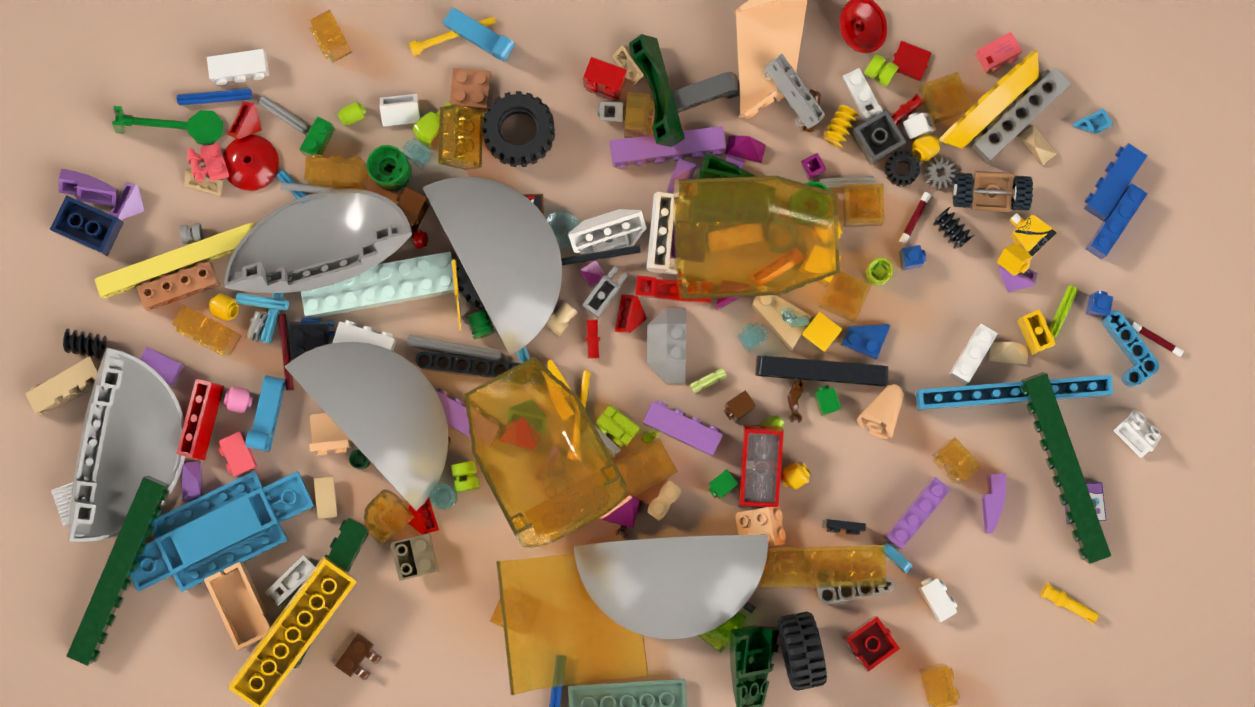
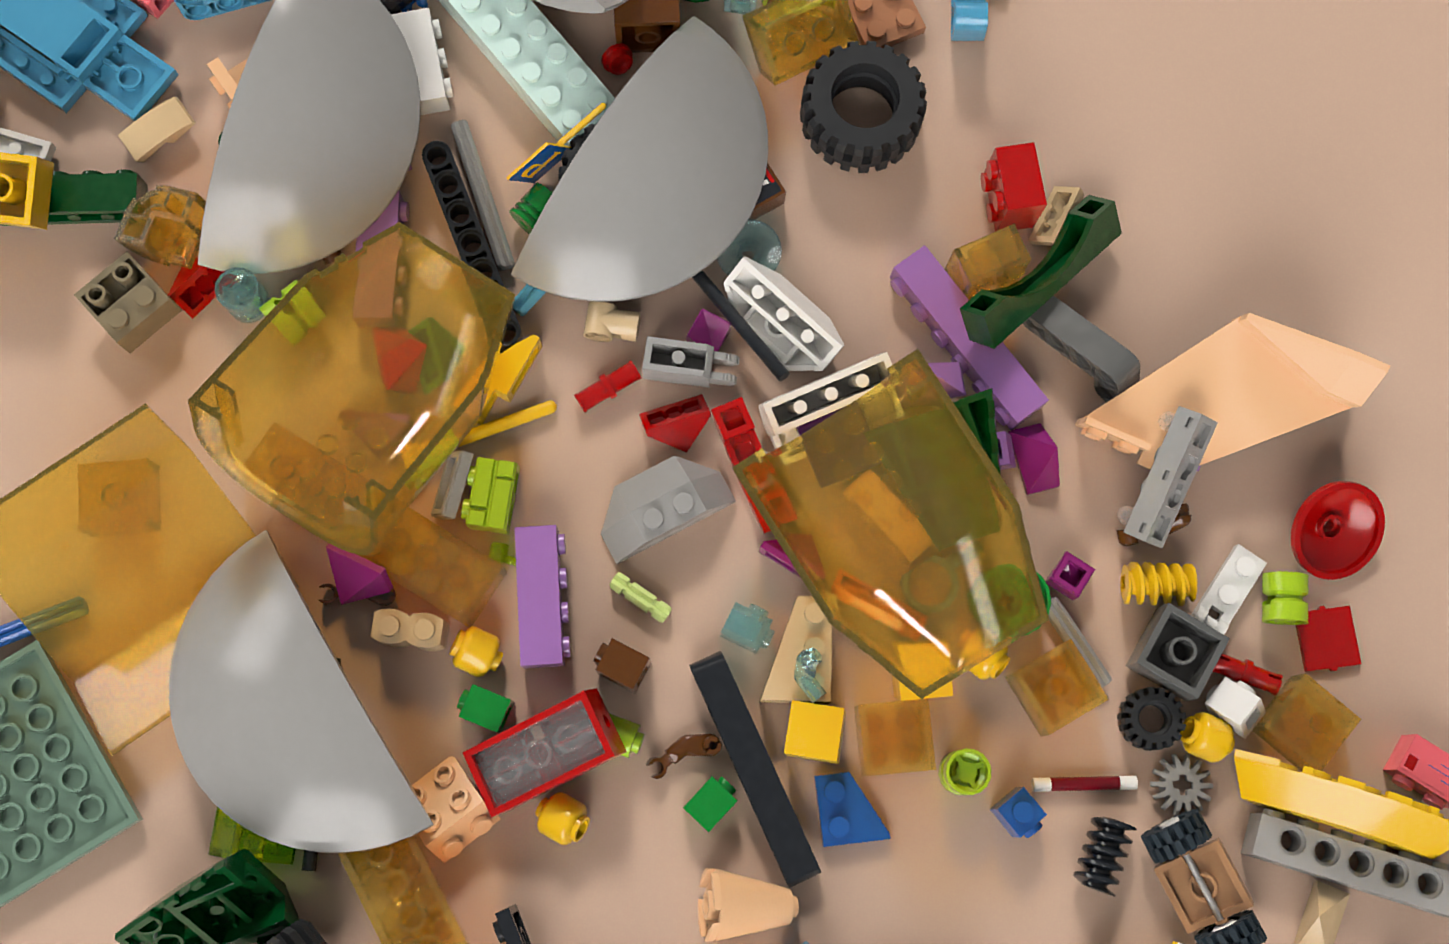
camera: 55 degrees right, 5 degrees down
(605, 115) = (967, 216): light grey brick -> none
(691, 474) = (476, 651): none -> yellow head

